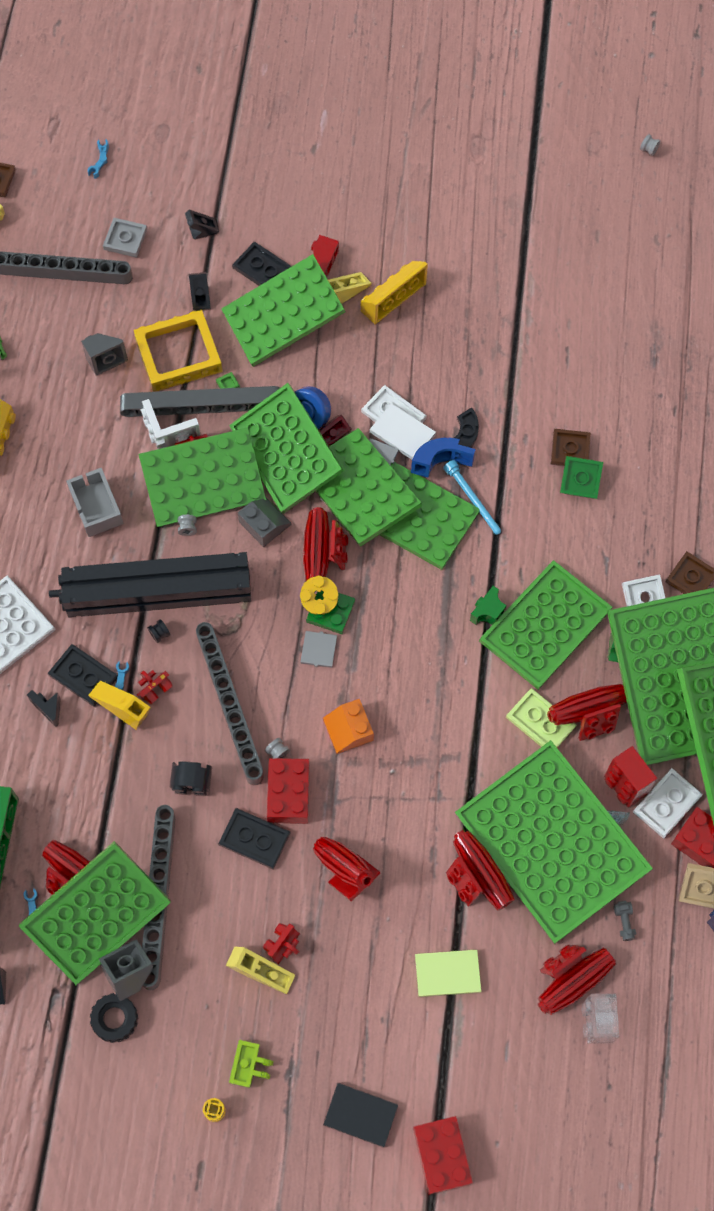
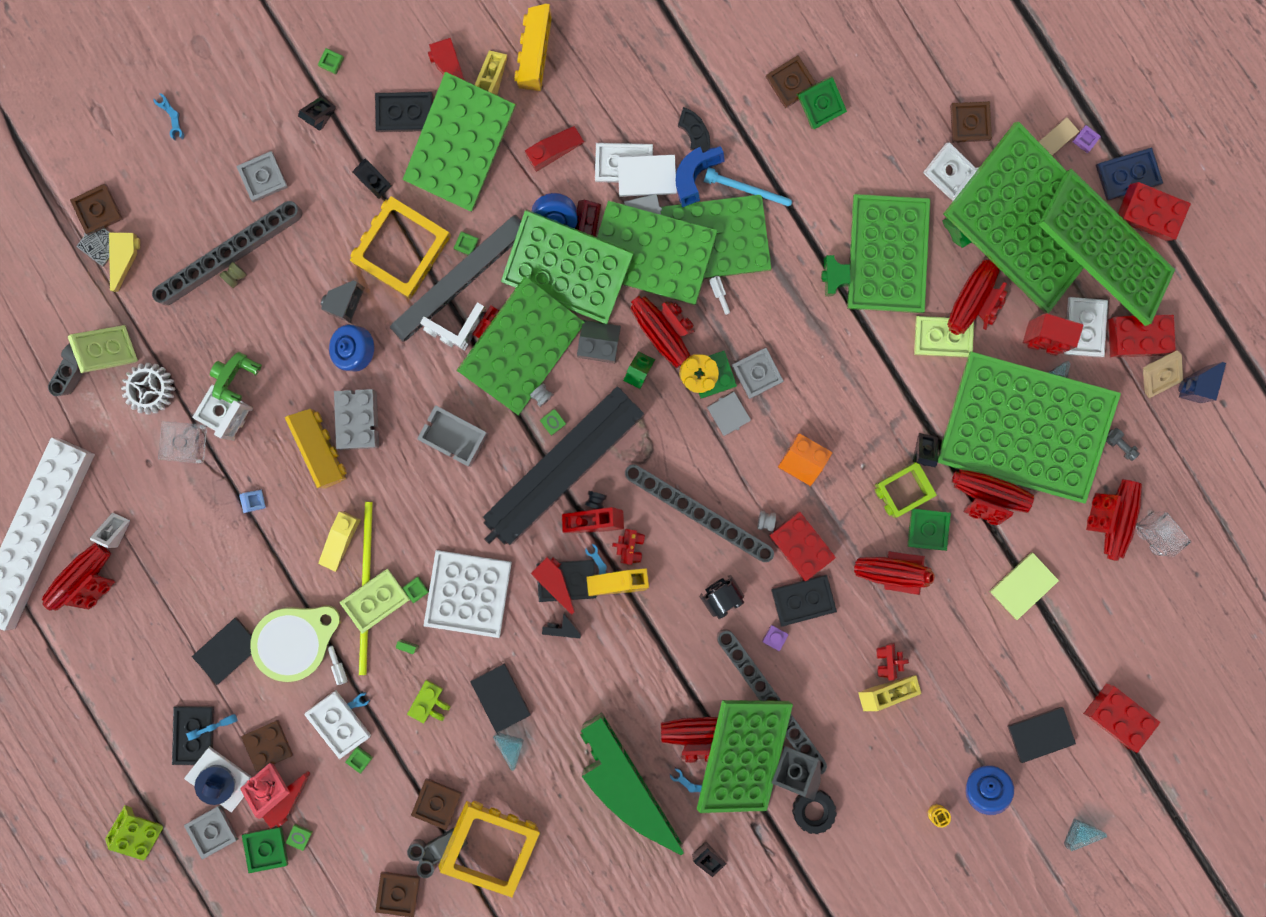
camera: 40 degrees left, 20 degrees up
(36, 433) = (354, 417): none -> light grey piece
(44, 283) = (233, 274): none -> olive wheel
(72, 663) = (553, 580): none -> red slope
(79, 388) = (351, 348): none -> blue wheel
(145, 645) = (593, 520): none -> red slope
(178, 549) = (553, 422): none -> bright green tile
(205, 849) = (775, 638): none -> medium lavender plate
(242, 201) = (330, 61): none -> bright green tile
(245, 1062) = (933, 766): lime hinge -> none
(275, 561) = (639, 370): none -> green brick
(275, 1121) = (989, 790): none -> blue wheel
(350, 365) = (553, 148): none -> red slope
(366, 634) = (757, 373): none -> light grey plate
(387, 554) = (719, 292): none -> white axle
(404, 861) = (929, 529): none -> green plate
(426, 832) = (921, 480): none -> lime window
(453, 796) = (926, 450): none -> black slope

